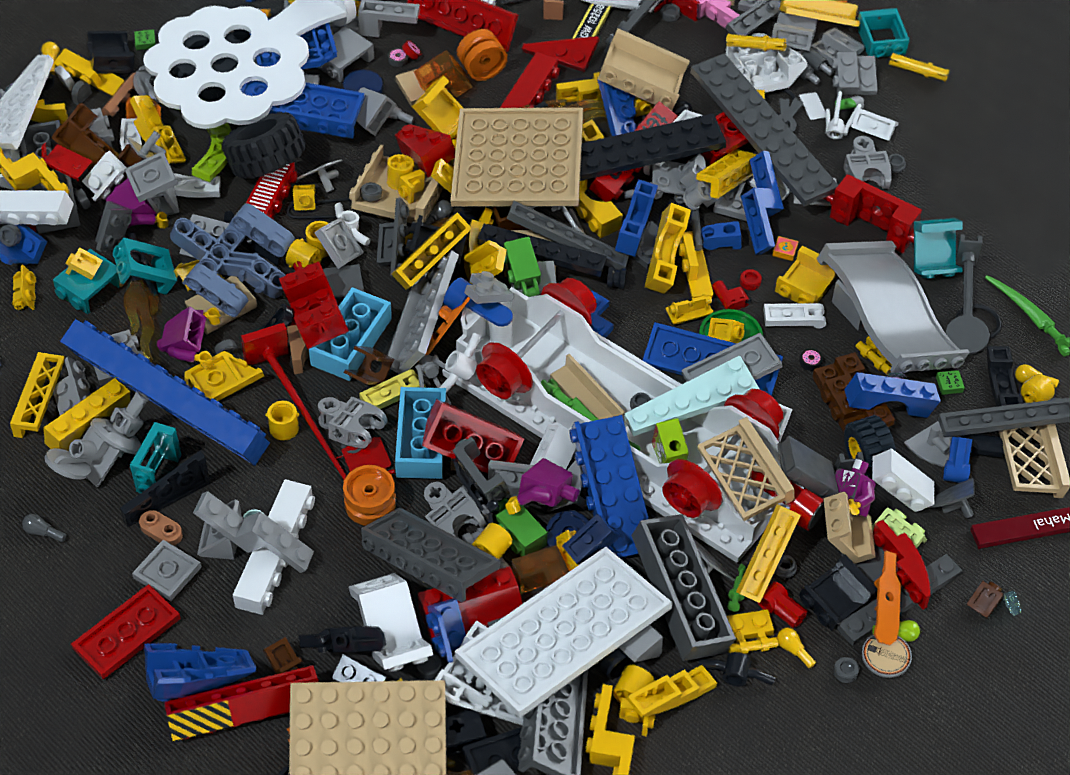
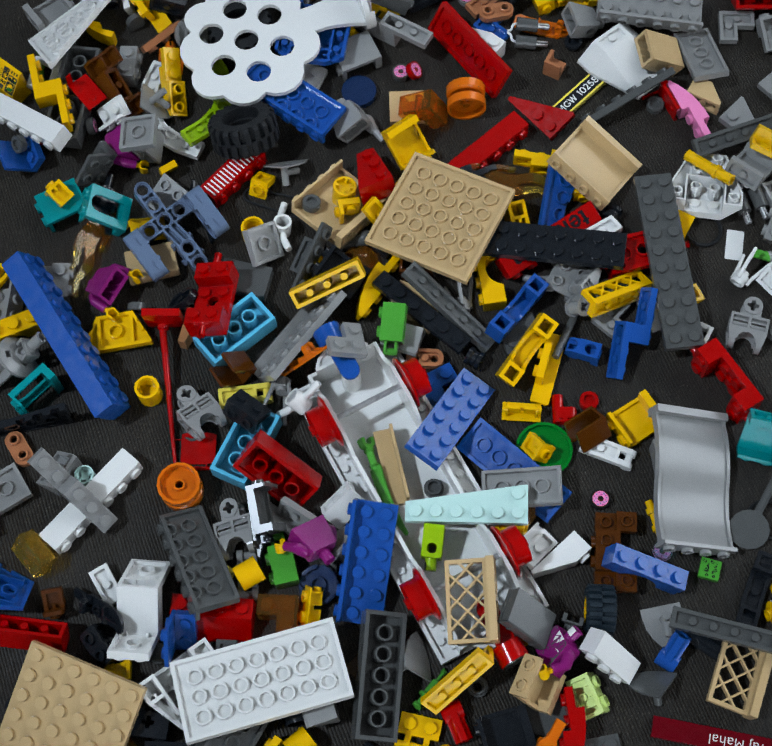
camera: 30 degrees right, 15 degrees up
(24, 289) = (16, 192): yellow hinge -> none
(194, 208) = (167, 168): none -> yellow tile
(235, 616) = (33, 553): none -> clear yellow brick
(303, 252) = (233, 243): yellow piece -> none
(329, 615) = (105, 583): none -> white plate
(408, 393) = (246, 410): none -> black bracket
(487, 257) = (365, 312): yellow bracket -> none
(590, 539) = (322, 606): dark blue panel -> none
(625, 332) = (449, 419): none -> plate
(763, 295) = (588, 428): none -> reddish brown piece
(785, 248) = (634, 381): light orange tile -> none
(787, 113) = (698, 254): dark grey piece -> none
(807, 415) = (564, 556): none -> white slope

